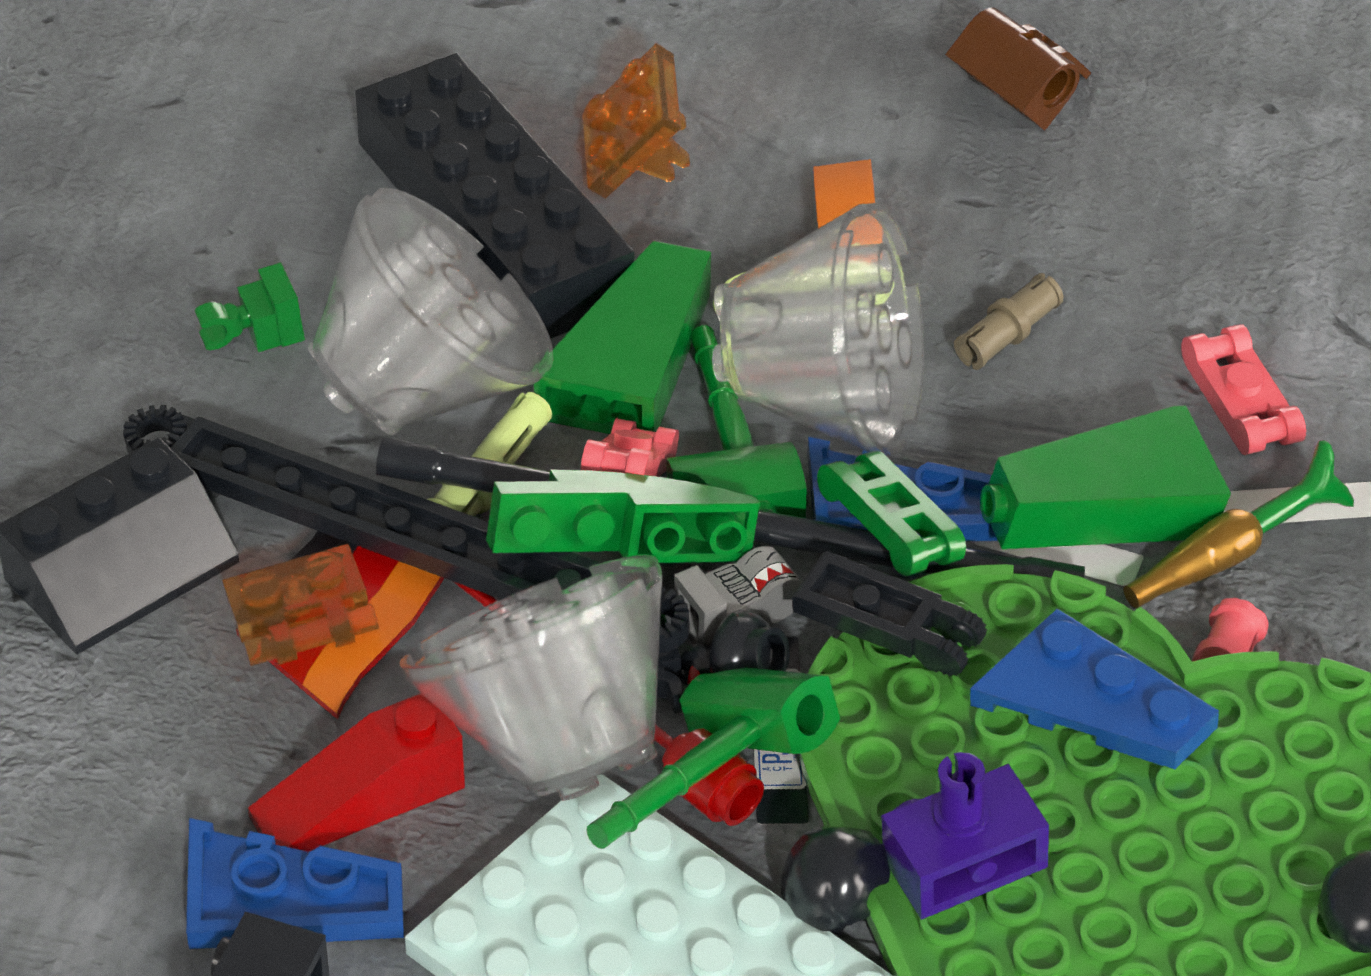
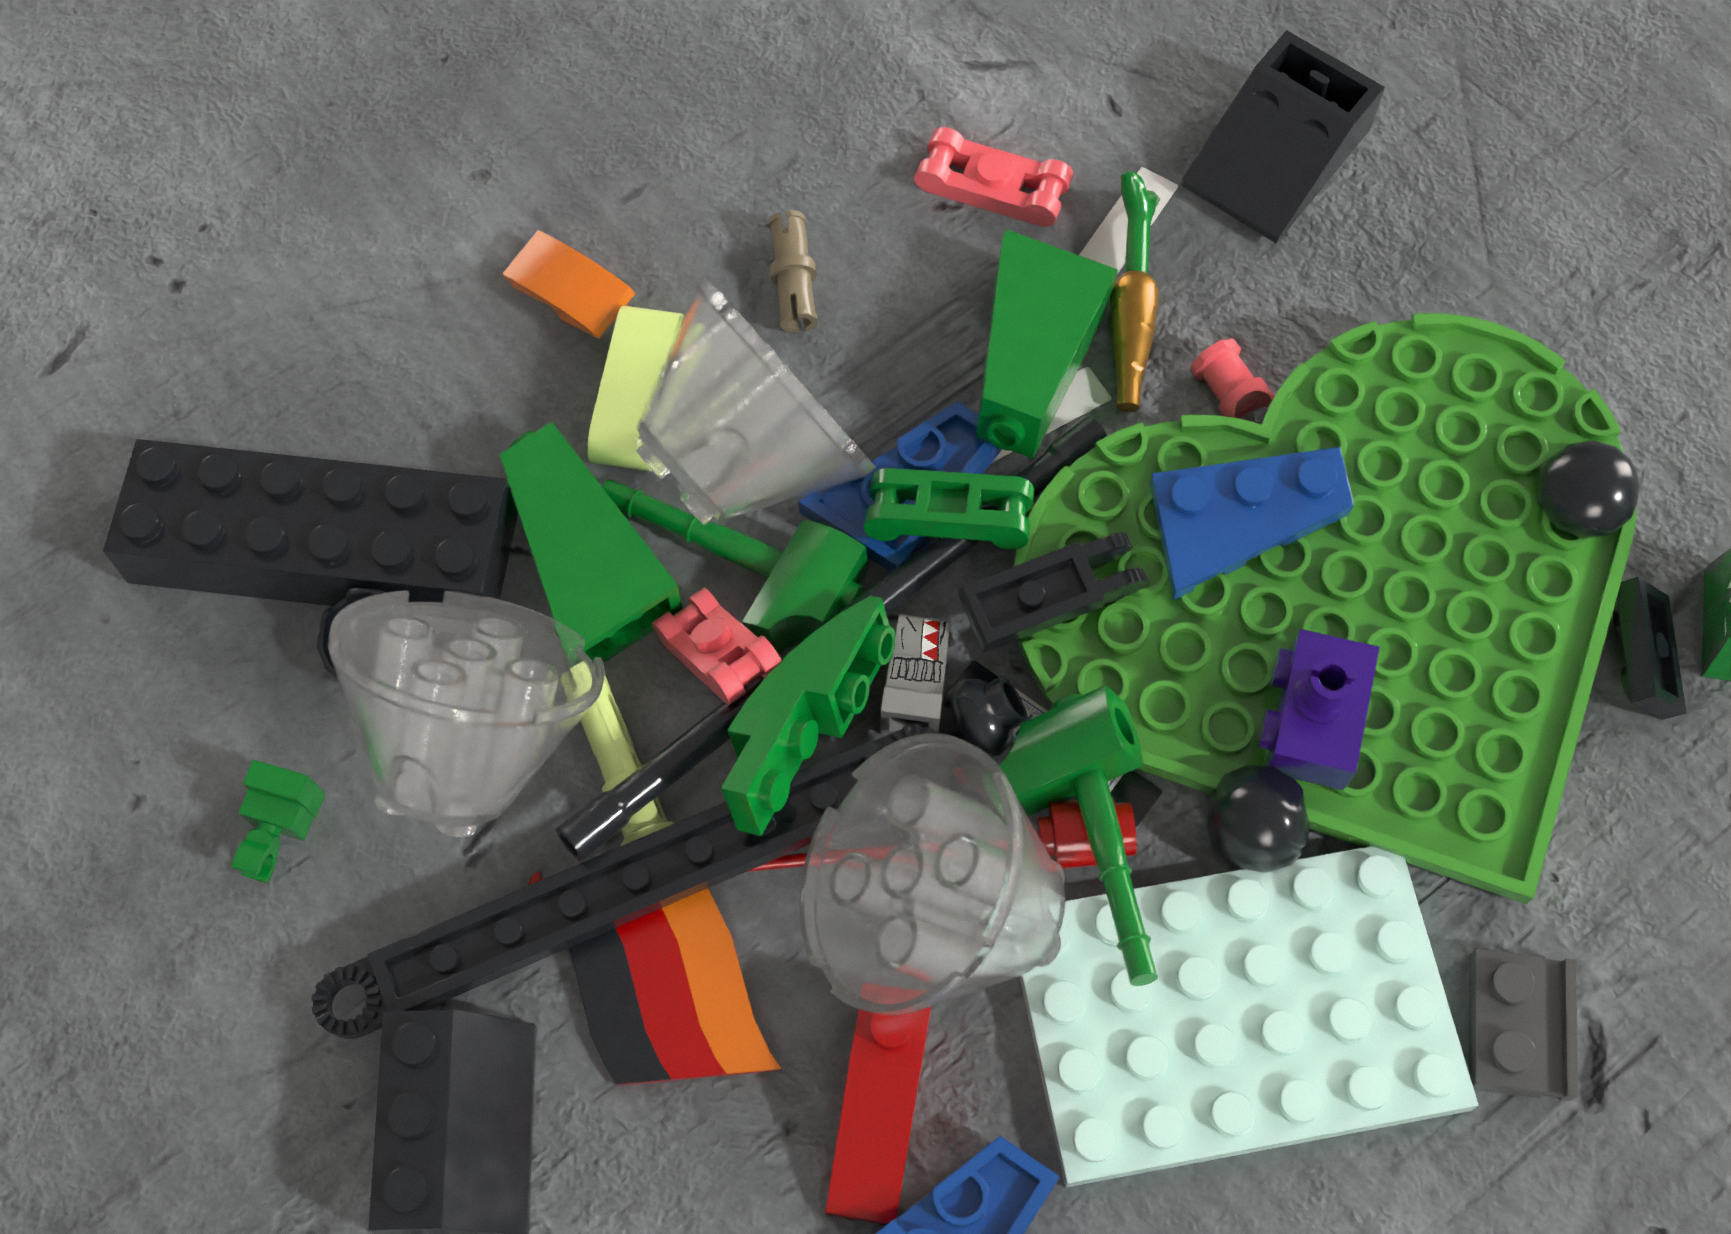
camera: 50 degrees left, 20 degrees up
(300, 605) = (631, 1011): clear orange plate -> none
(634, 124) = (341, 366): clear orange plate -> none
(1018, 65) = (539, 53): reddish brown piece -> none

